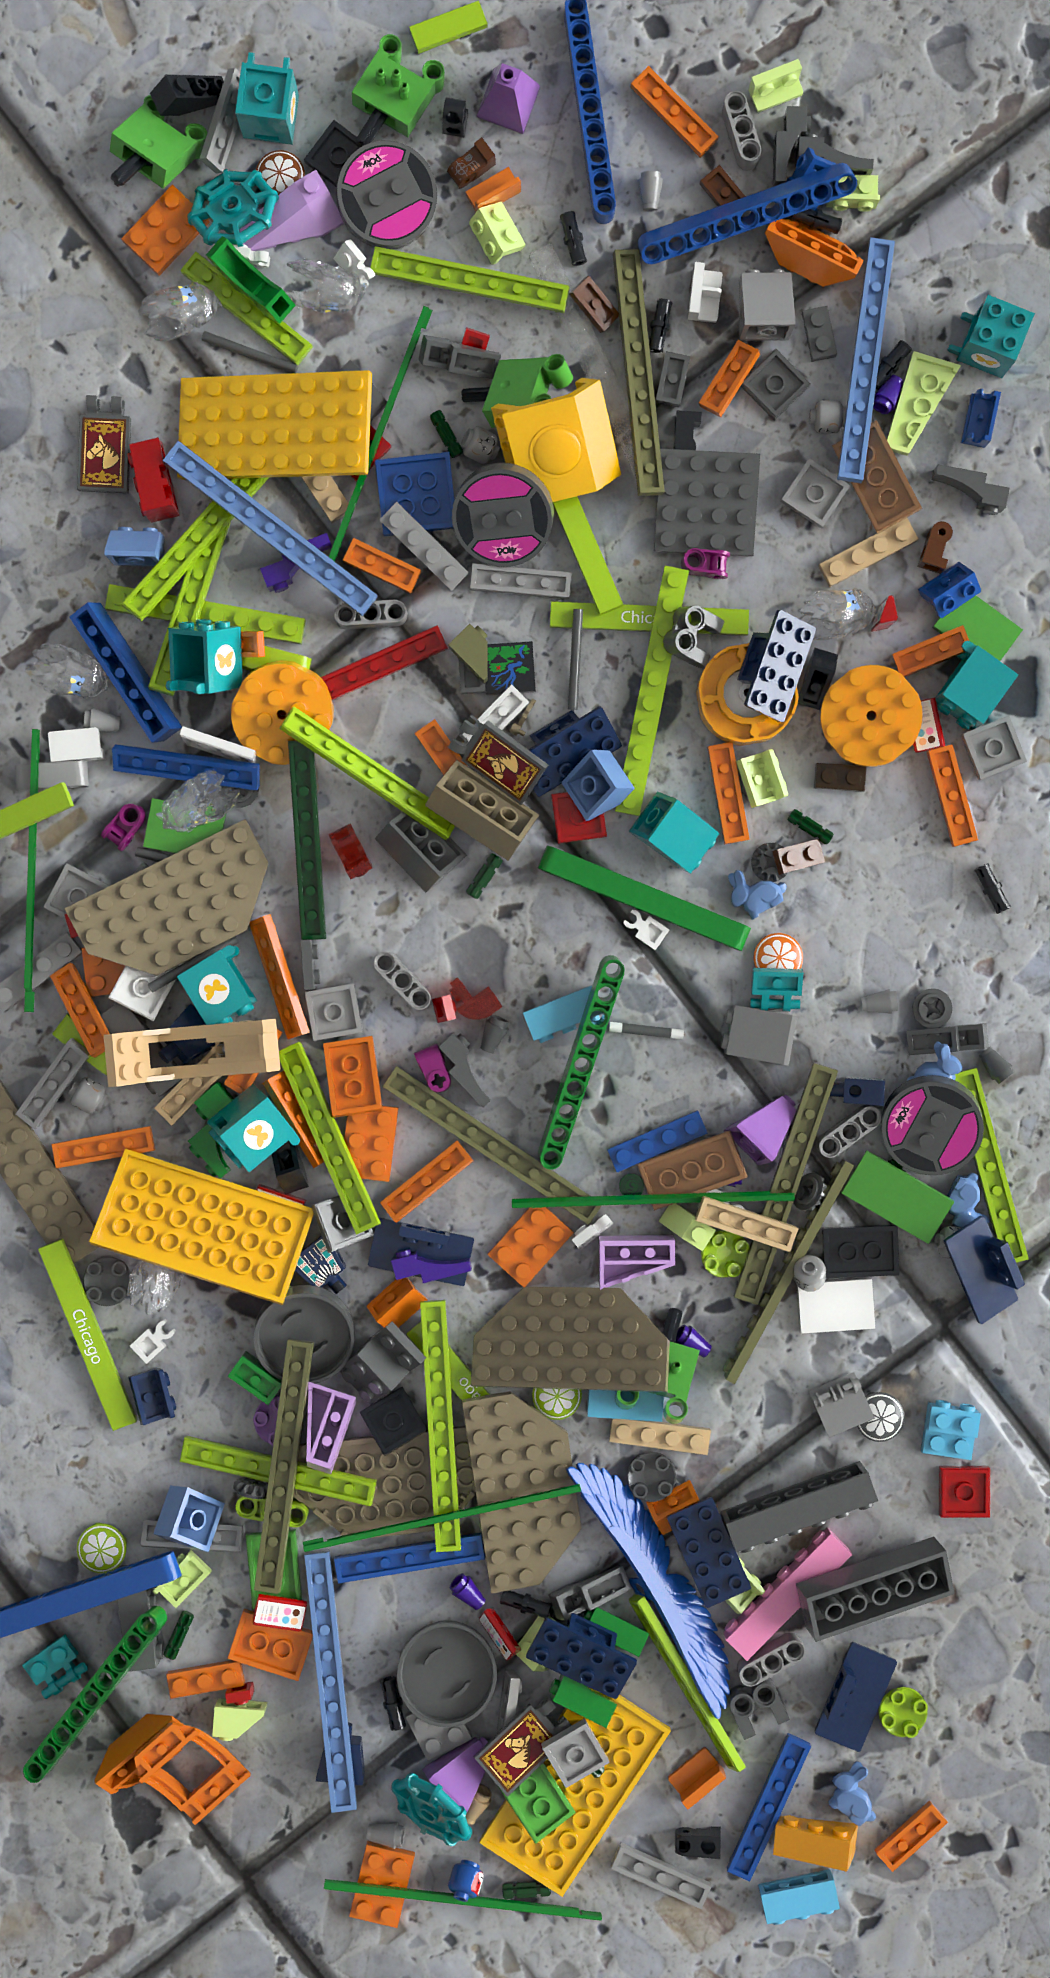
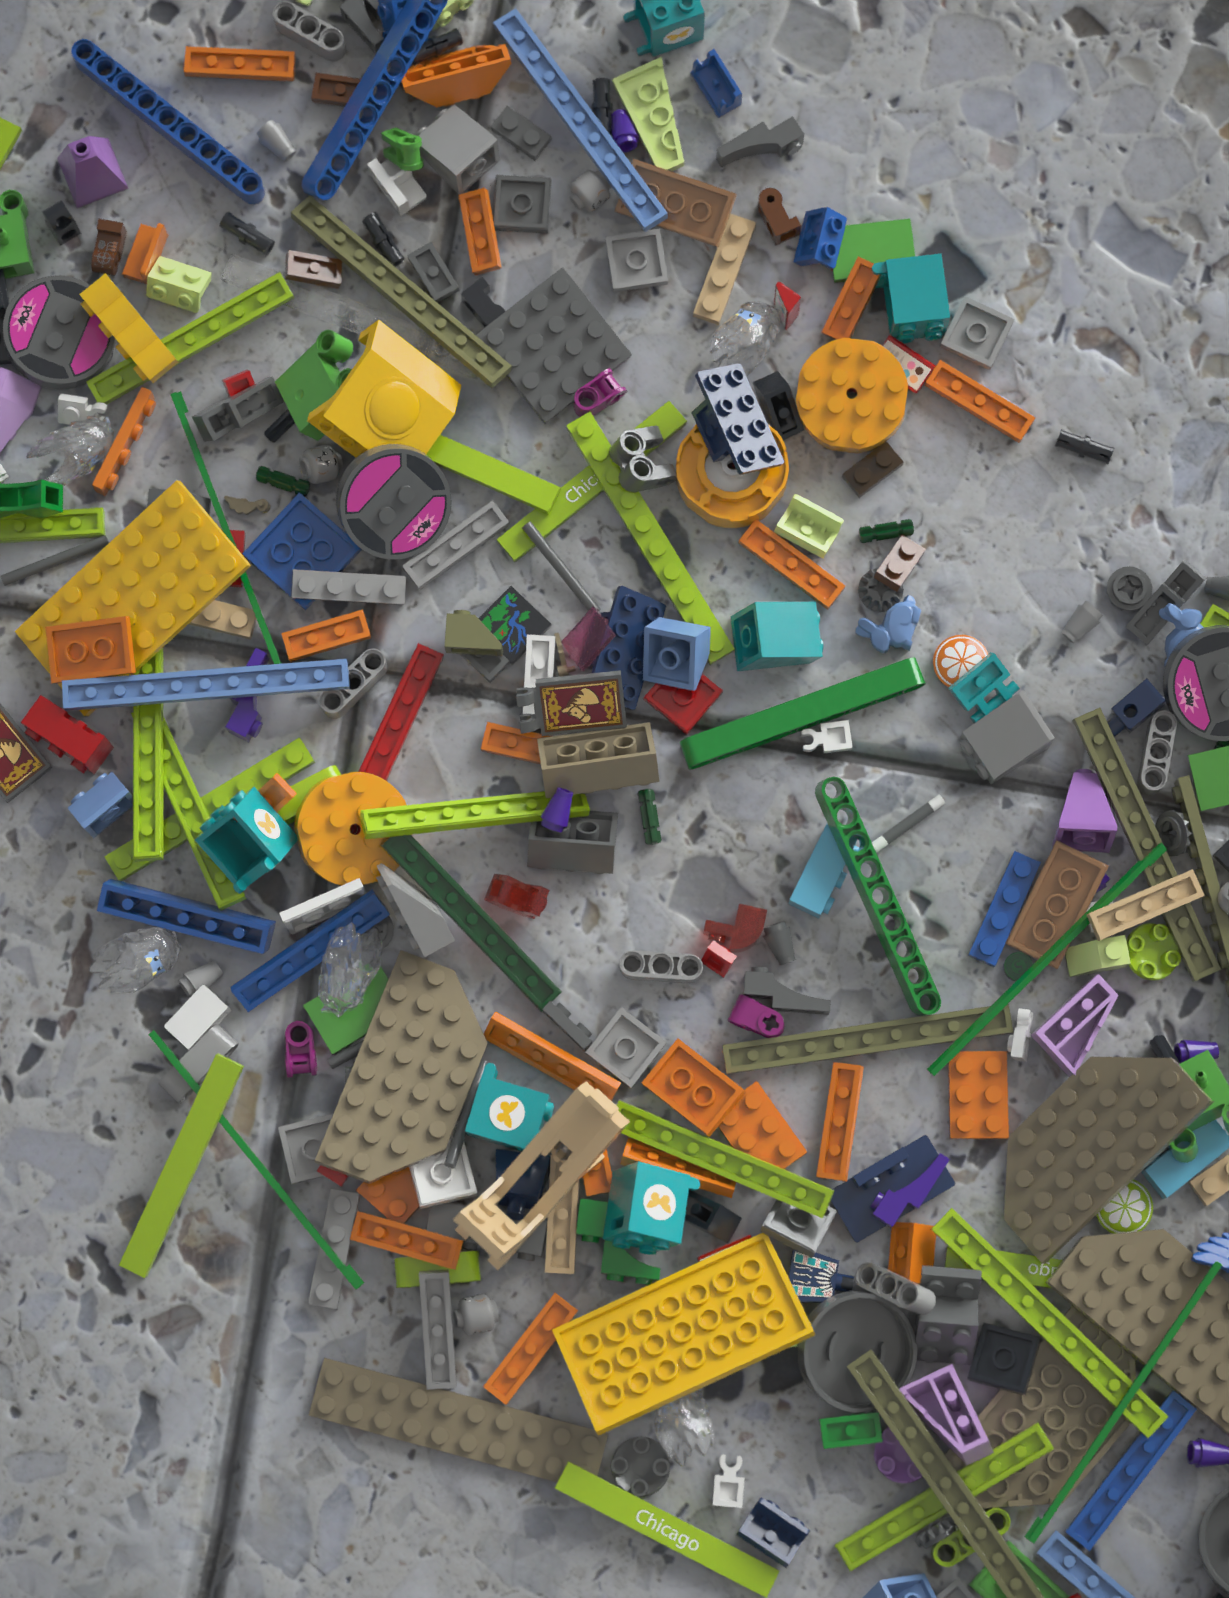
camera: 40 degrees left, 10 degrees down
(215, 436) = (90, 649): none -> orange plate
(273, 803) = (415, 912): none -> light grey slope
(355, 316) = (119, 452): none -> orange plate
(362, 1319) = (895, 1288): none -> light grey beam
(406, 428) = (242, 505): none -> dark tan piece
(423, 821) = (558, 810): none -> dark purple cone
(432, 234) = (128, 328): none -> yellow brick
(549, 723) = (588, 638): none -> clear pink piece
(728, 273) = (403, 149): none -> bright green piece

